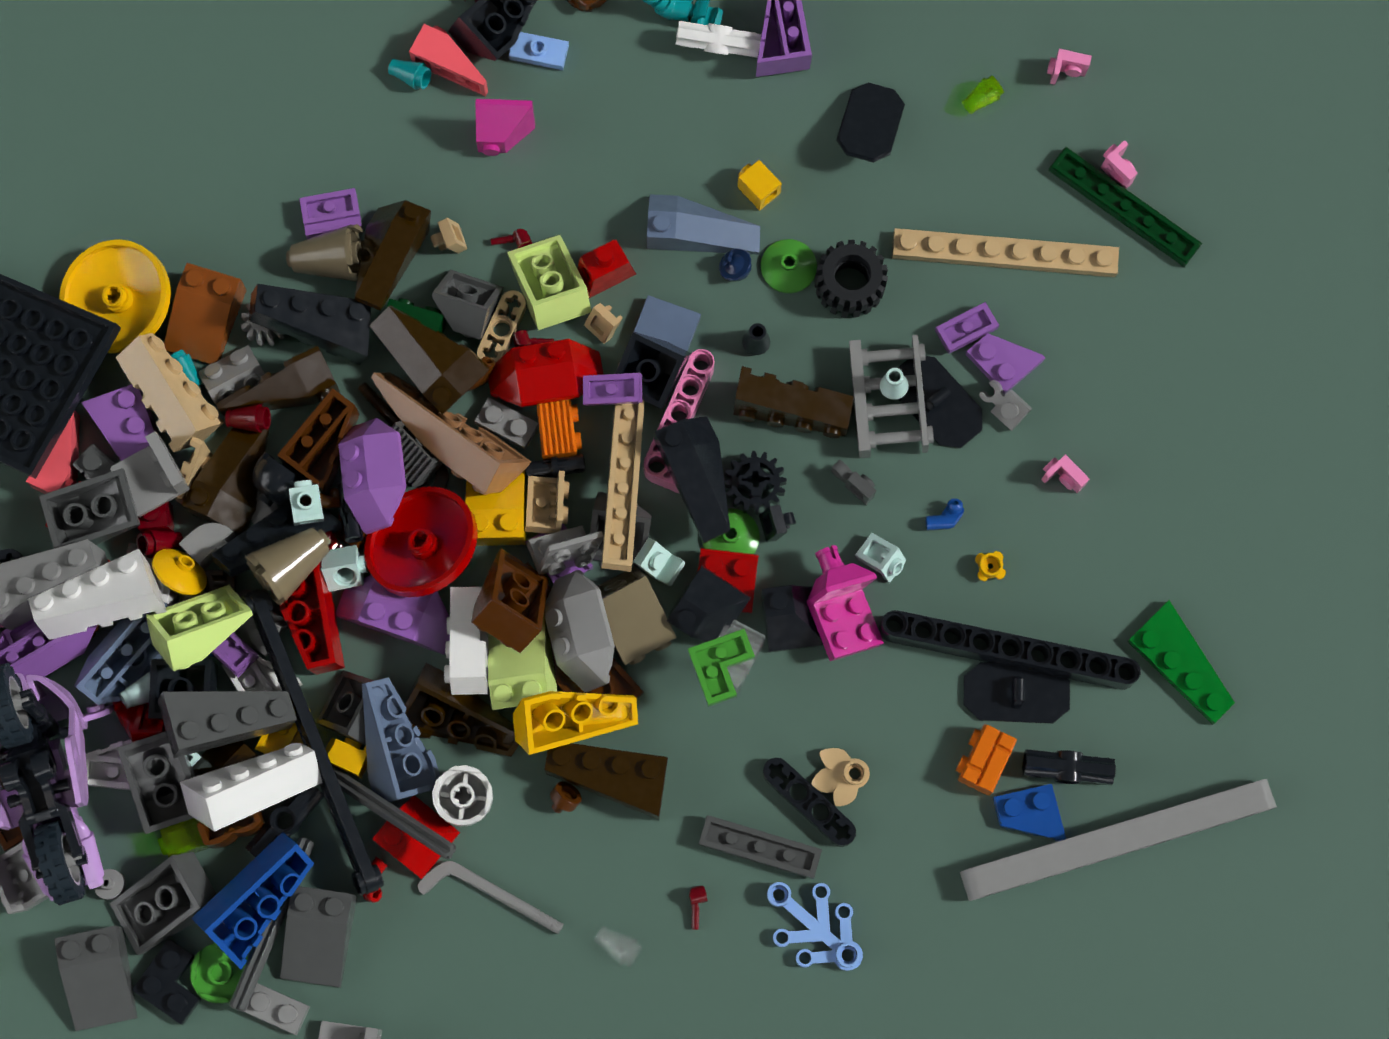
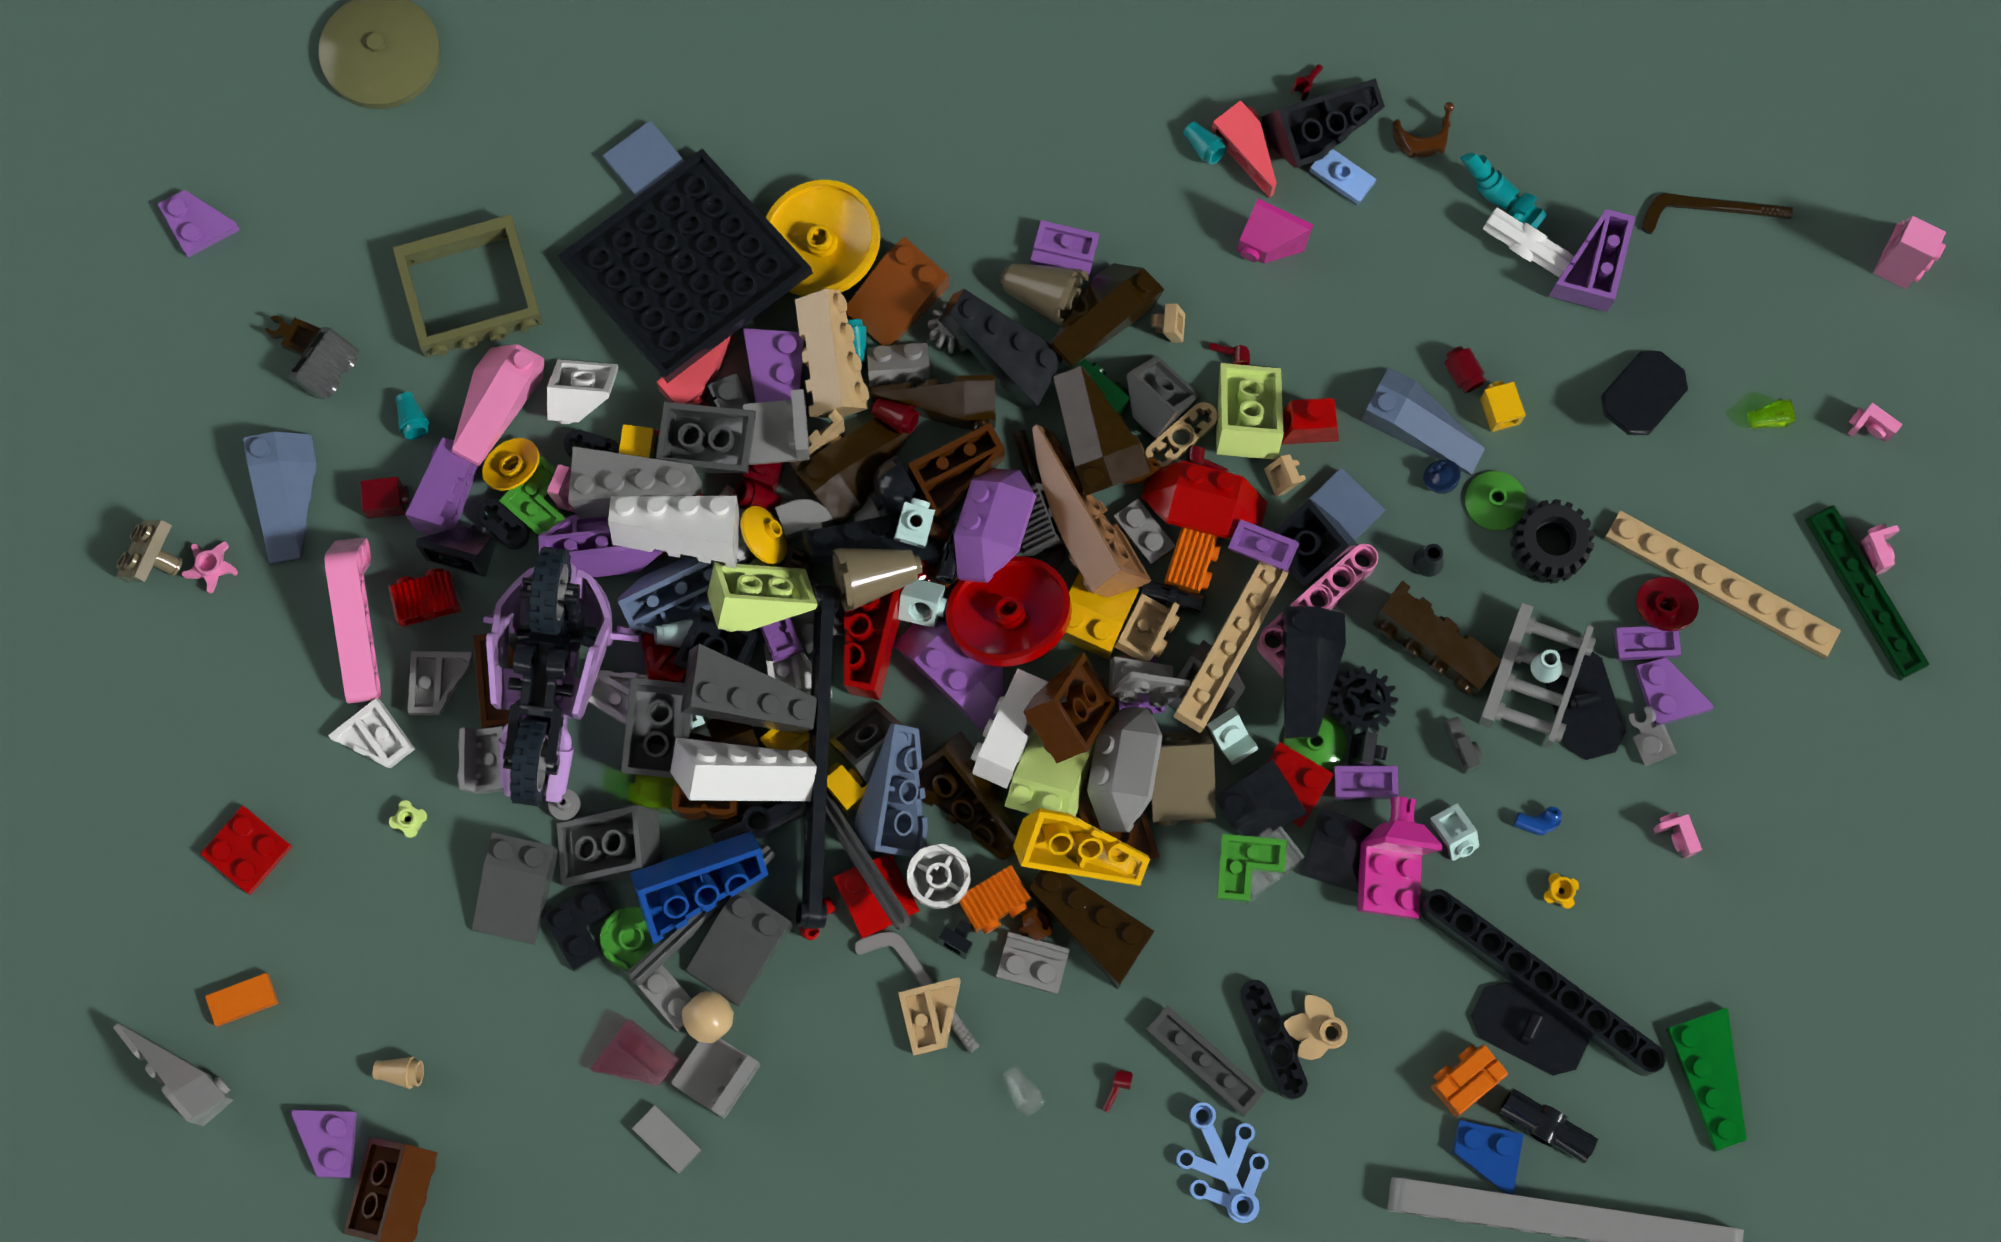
camera: 25 degrees right, 0 degrees up
(32, 540) = (638, 441): none -> yellow brick
(317, 1009) = (707, 1017): none -> tan hair
(503, 843) = (956, 940): none -> black tile
(508, 917) = (930, 1014): none -> tan wing
(519, 794) = (995, 899): none -> orange brick
(577, 832) = (1032, 963): none -> light grey plate
(713, 167) = (1464, 369): none -> dark red brick
(788, 549) = (1365, 782): none -> medium lavender plate
(971, 280) = (1668, 594): none -> dark red dish

